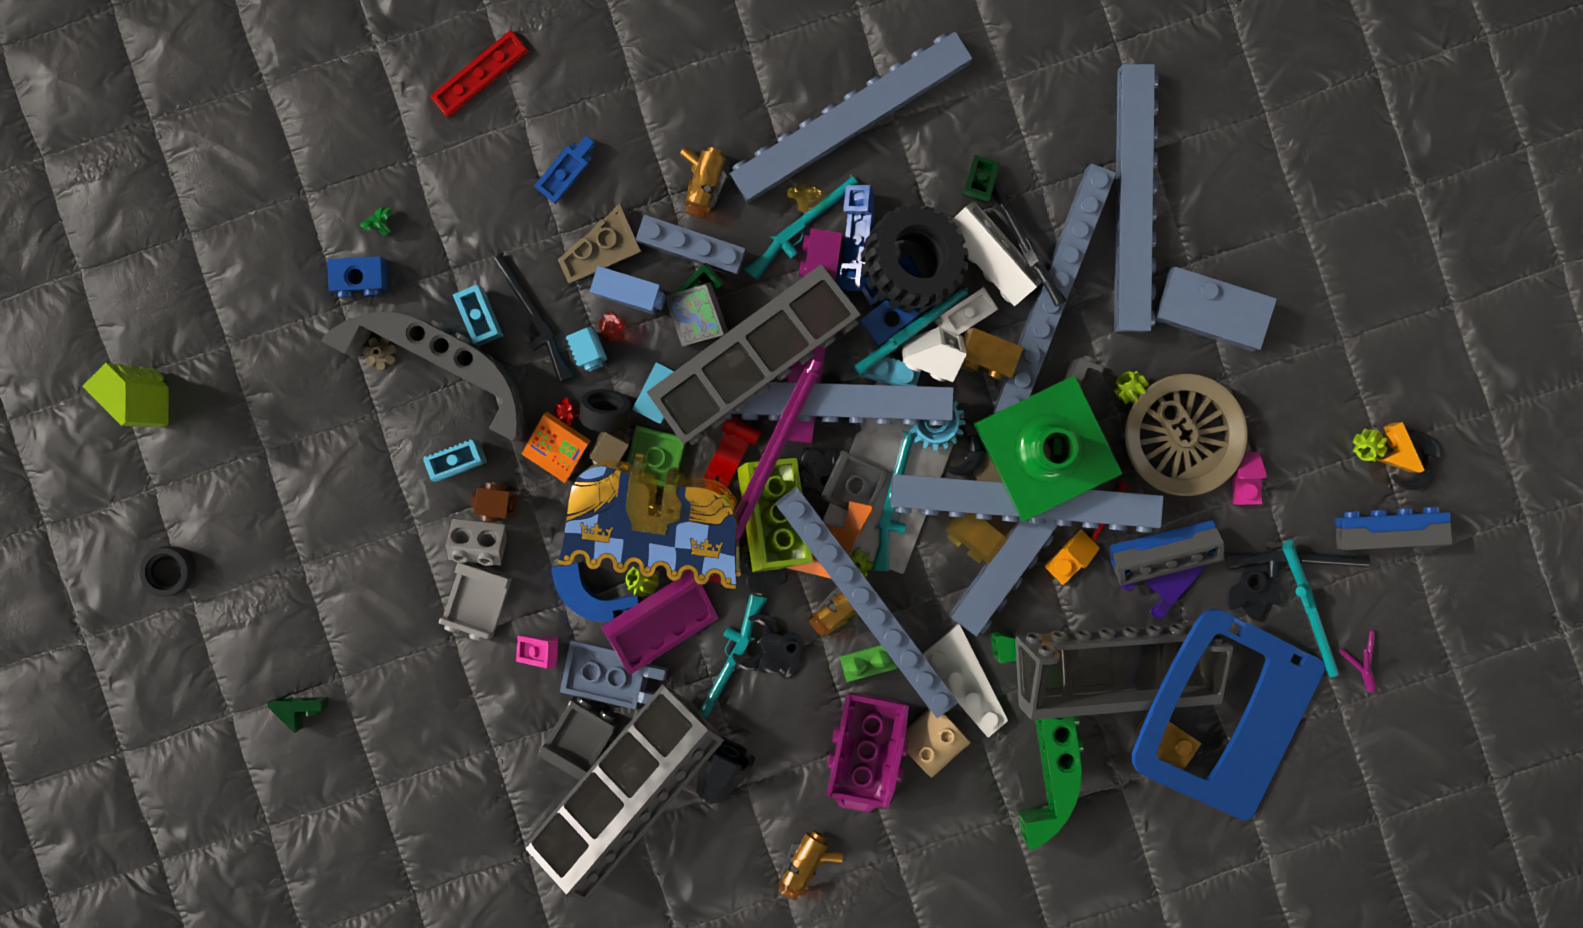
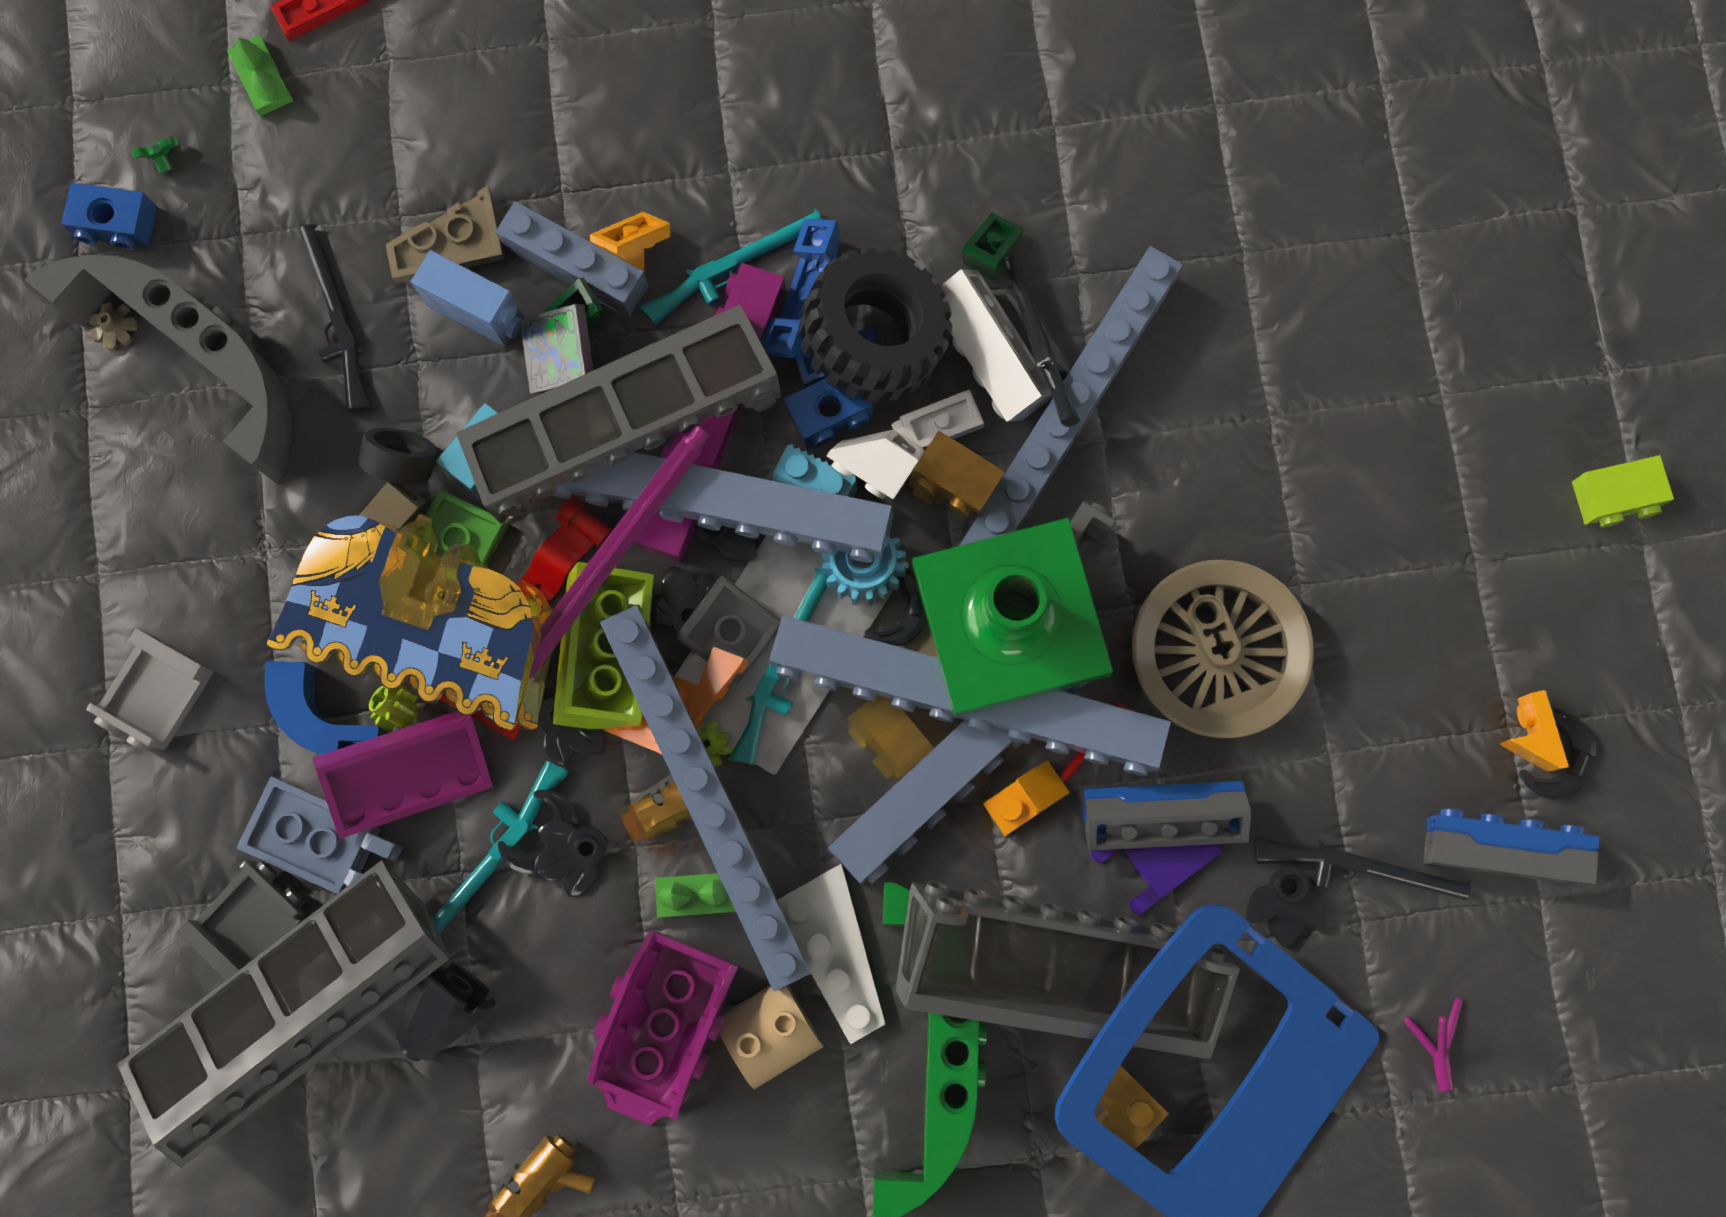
camera: 15 degrees right, 10 degrees down
(435, 149) = (259, 74): none -> bright green tile
(455, 460) = (171, 485): medium azure brick -> none
(477, 537) = (171, 606): light grey brick -> none
(478, 315) = (256, 295): medium azure brick -> none
(494, 502) = (210, 552): reddish brown brick -> none
(537, 650) = (222, 781): dark pink slope -> none
(556, 447) = (317, 491): orange tile -> none
(565, 170) = (427, 130): blue hinge -> none
(565, 411) = (343, 452): red plant -> none
(587, 349) = (392, 366): medium azure brick -> none
(611, 327) = (437, 349): clear red plant -> none
(706, 181) = (613, 179): pearl gold piece -> none
(730, 222) = (631, 236): none -> light orange slope
(803, 195) = (743, 224): clear yellow plant -> none
(850, 117) = (829, 132): sand blue brick -> none
(909, 331) = (842, 428): teal piece -> none
(1130, 386) = (1154, 565): lime gear -> none
(1135, 198) = (1204, 313): sand blue brick -> none
(1214, 309) = (1293, 481): sand blue brick -> none
(1247, 480) = (1305, 735): dark pink slope -> none
(1305, 592) = (1364, 913): teal piece -> none
(1370, 445) = (1493, 717): lime gear -> none
(1435, 273) = (1623, 490): none -> lime brick

